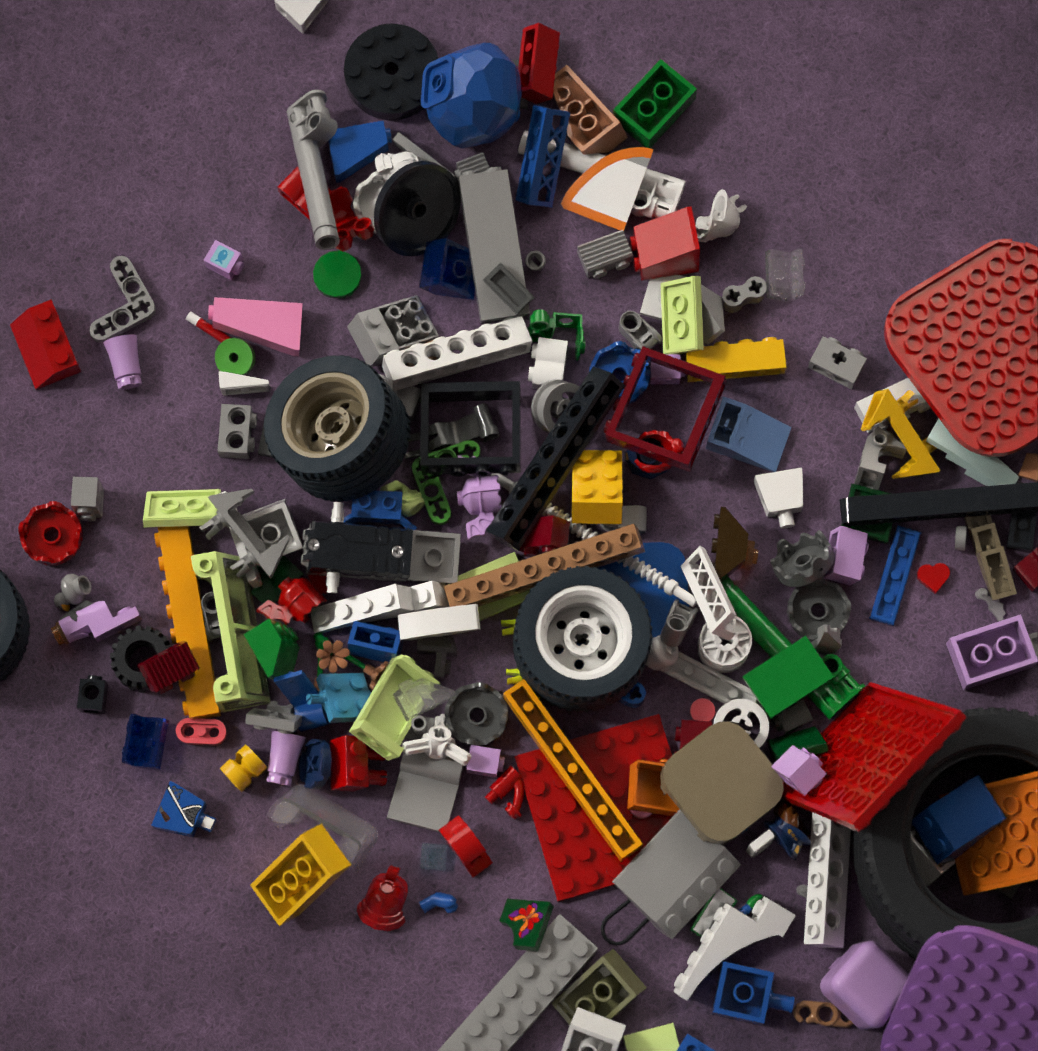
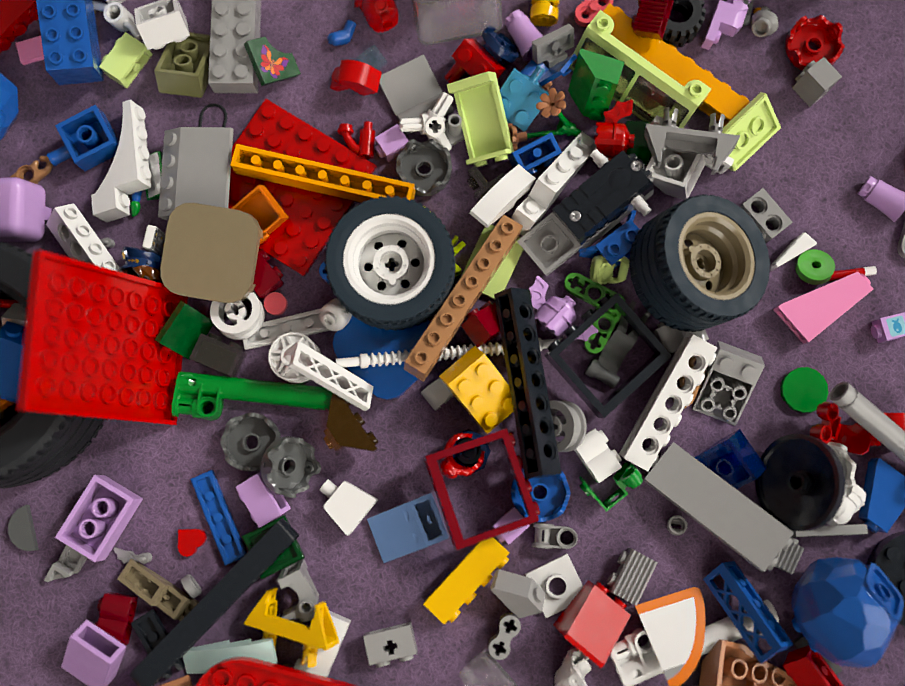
camera: 140 degrees right, 5 degrees up
(420, 697) = (469, 141): clear slope -> none
(508, 288) = (676, 481): dark grey tile -> none
(677, 624) = (338, 344): light grey piece -> none
(682, 315) = (532, 574): yellowish green tile -> none
(788, 677) = (229, 370): green tile -> none
(800, 769) = (156, 300): lavender brick -> none
(828, 640) = (225, 424): light grey slope -> none

